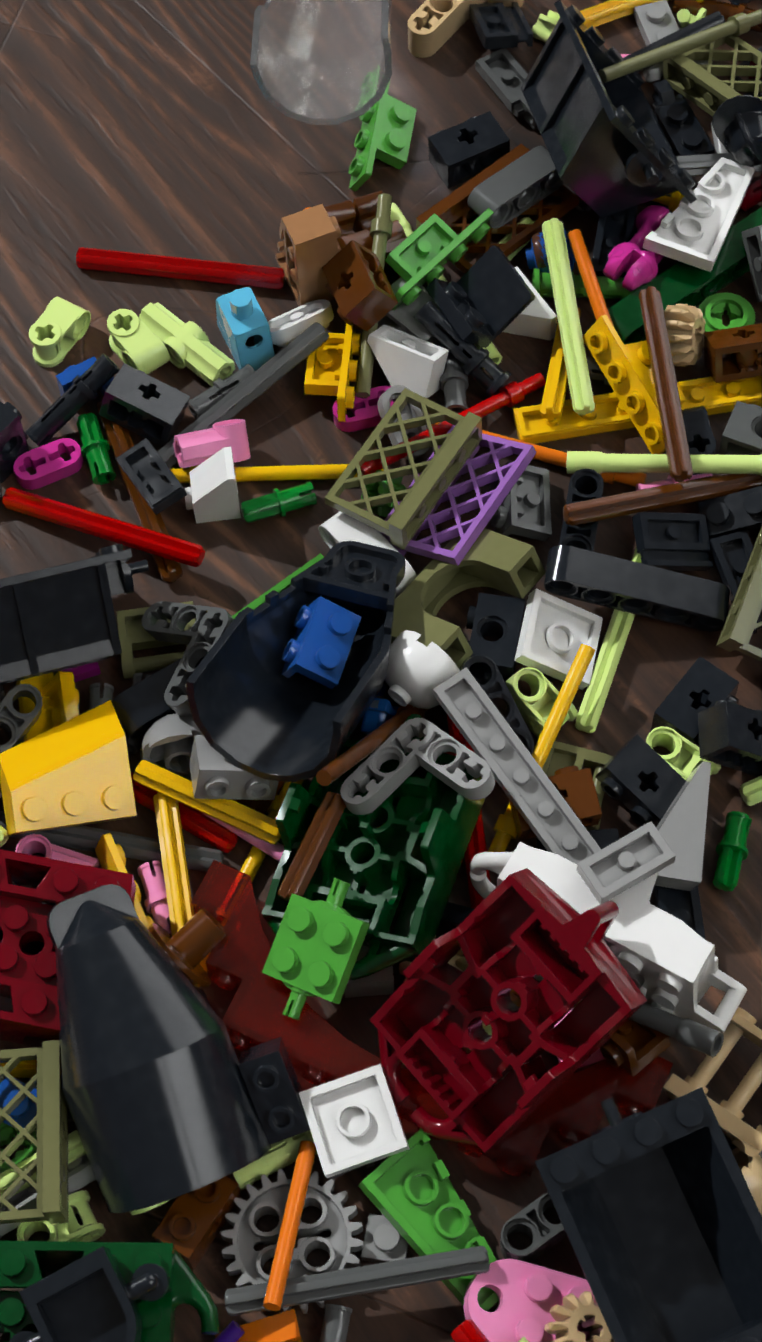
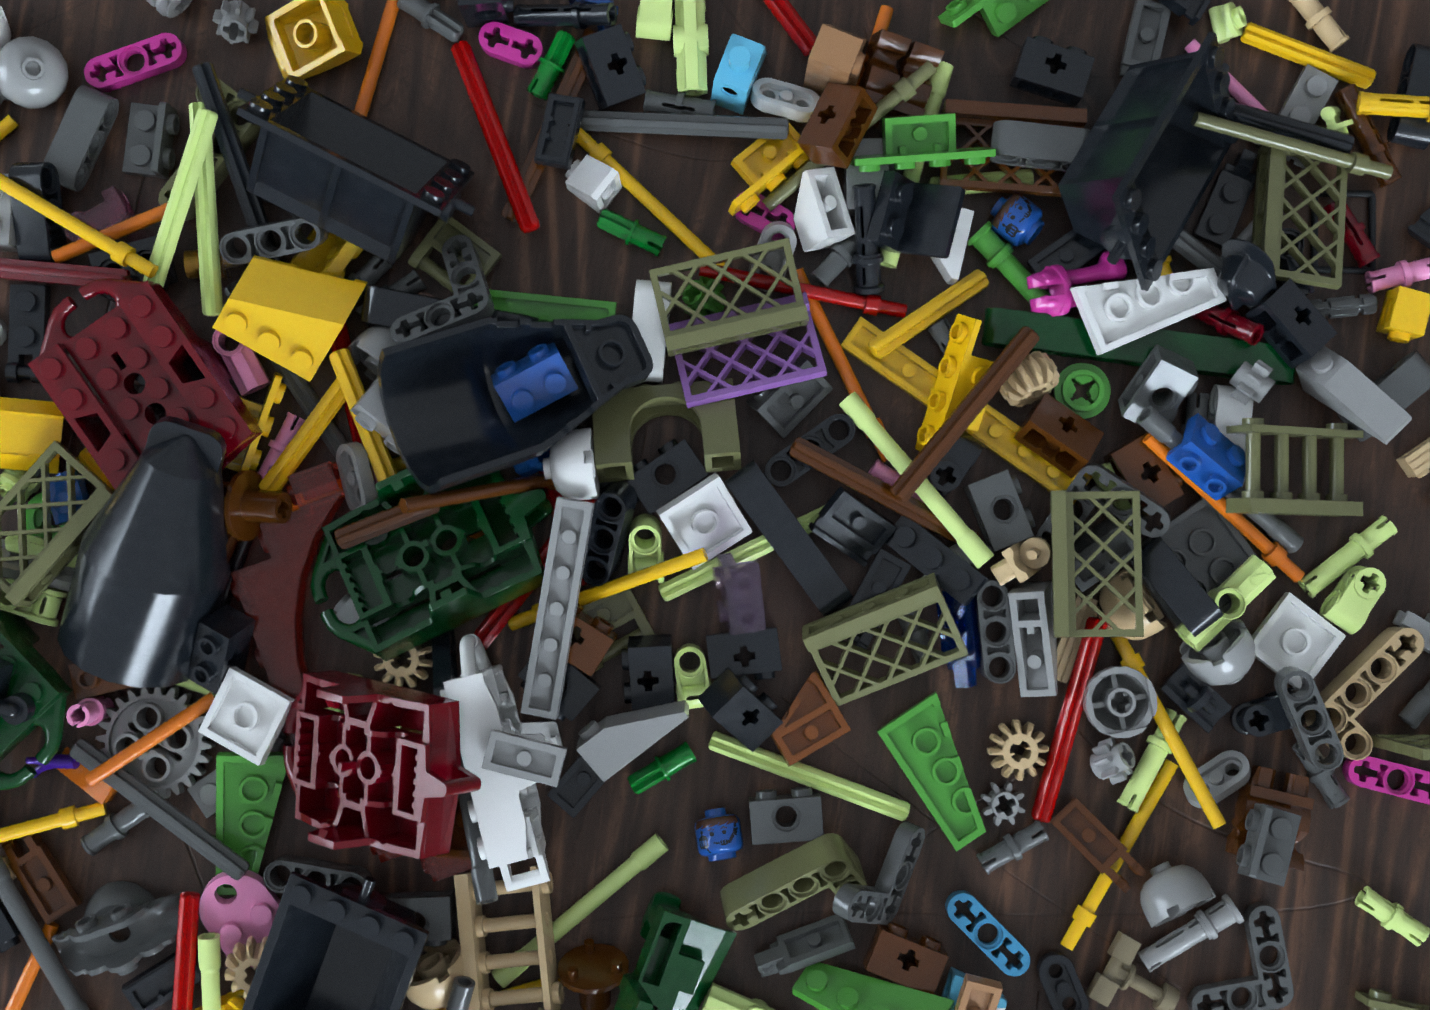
camera: 40 degrees right, 25 degrees up
(197, 446) = (636, 150): bright pink piece -> none
(210, 1248) = (89, 711): none -> bright pink pin
(250, 856) = (355, 474): none -> light grey plate
(315, 948) = (321, 591): bright green plate -> none
(422, 754) = (512, 533): light grey beam -> none
(568, 317) = (965, 287): yellowish green axle -> none
(588, 274) = (1008, 279): orange bar -> none
(644, 659) = (741, 595): none -> clear purple bracket

